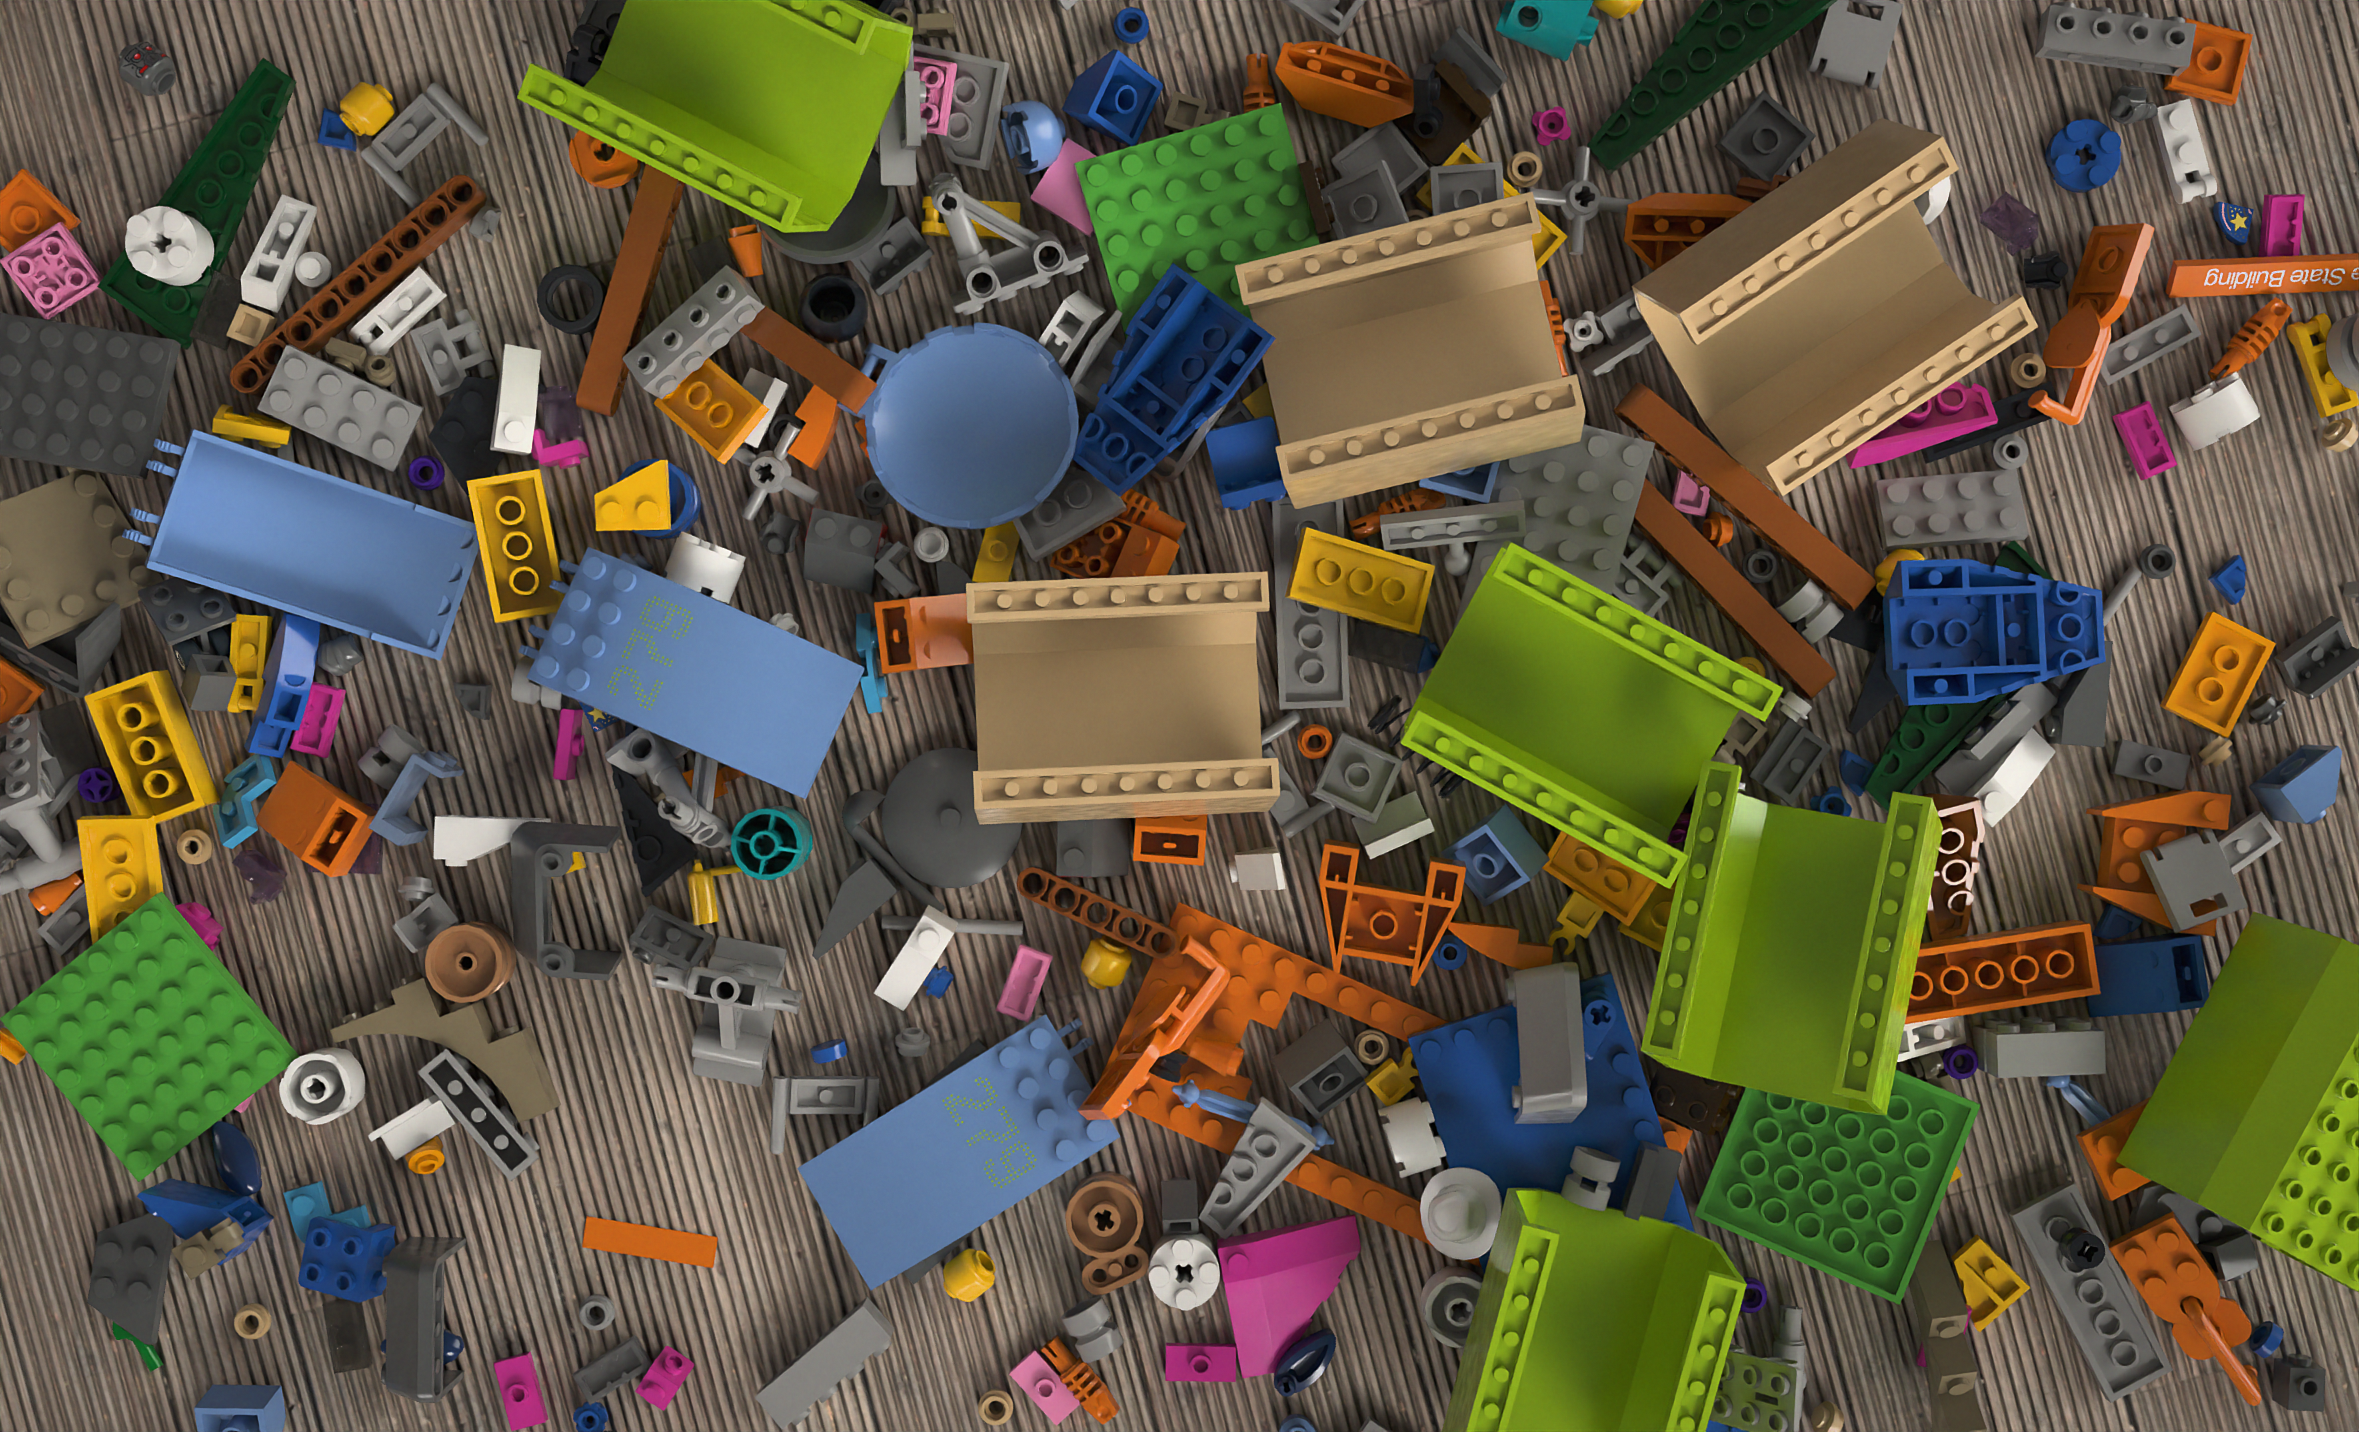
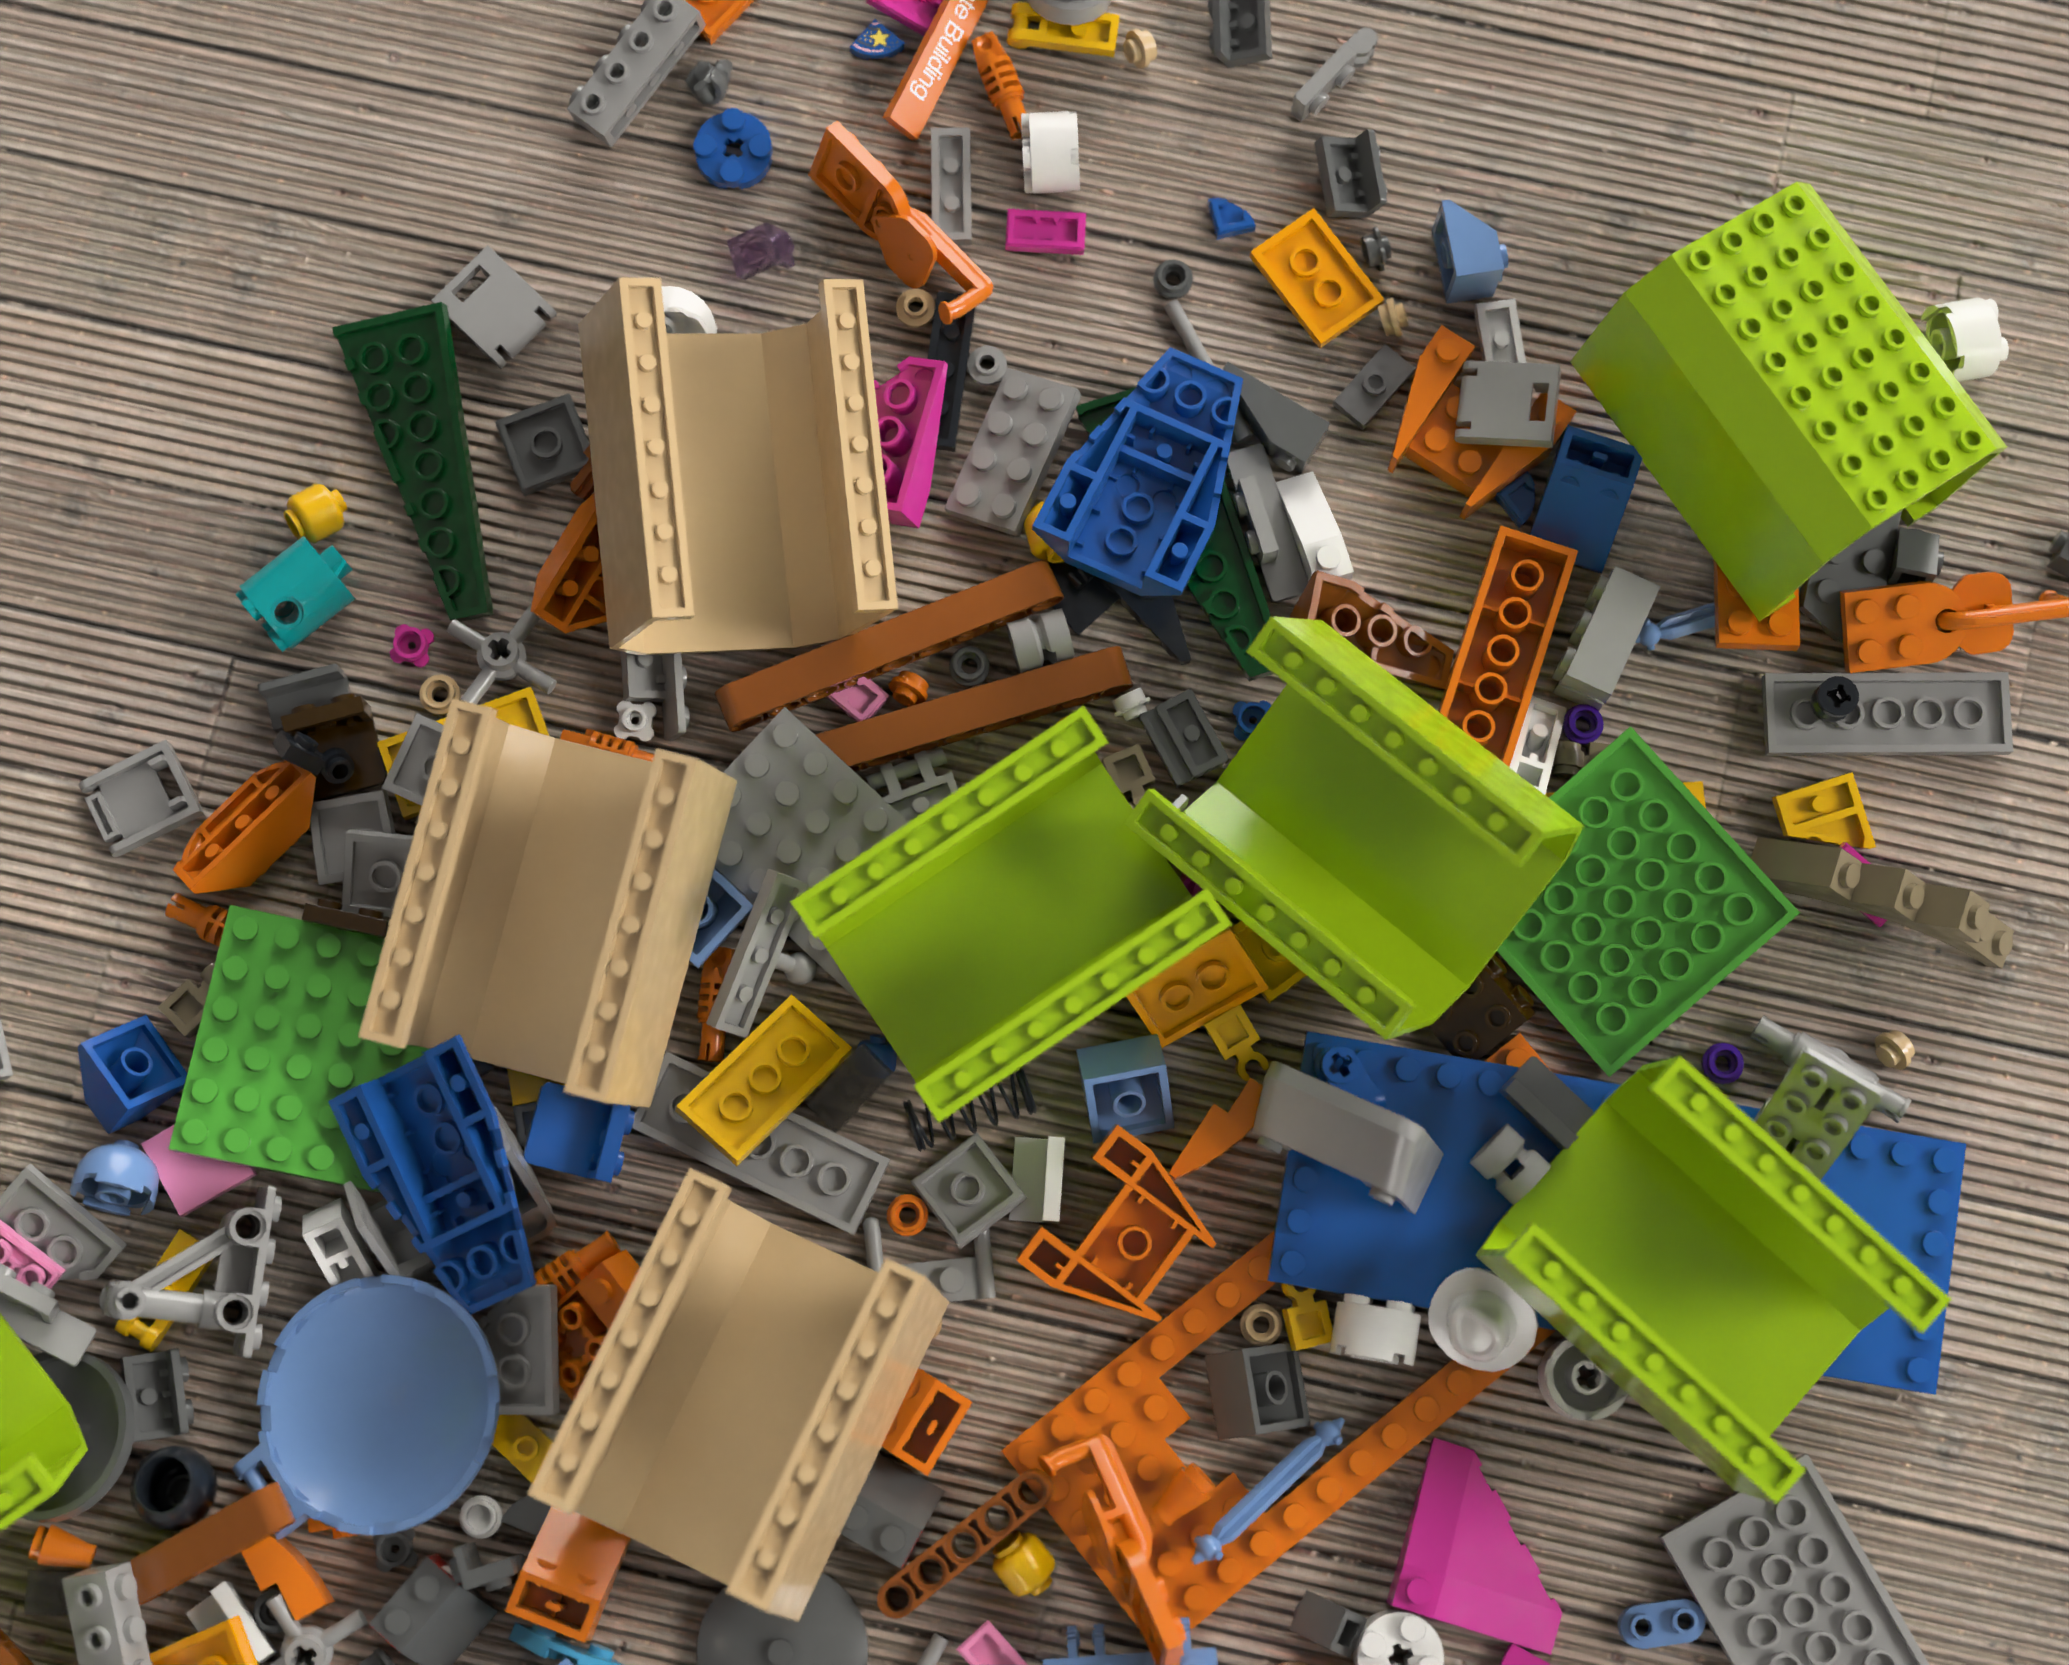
camera: 65 degrees left, 10 degrees down
(1135, 15) = (54, 1016): blue plate -> none
(1169, 1066) = (1166, 1553): black wheel -> none
(1258, 869) = (1007, 1346): white slope -> none
(1258, 1164) = (1322, 1512): light grey wing -> none
(1304, 1362) = (1566, 1576): dark blue arm -> none
(1458, 960) = (1203, 1203): blue plate -> none
(1853, 771) = (1229, 679): blue tile -> none
(2044, 271) = (825, 243): black arm -> none
(2183, 151) = (782, 56): white plate -> none
(2266, 1339) = (2020, 564): blue tile -> none

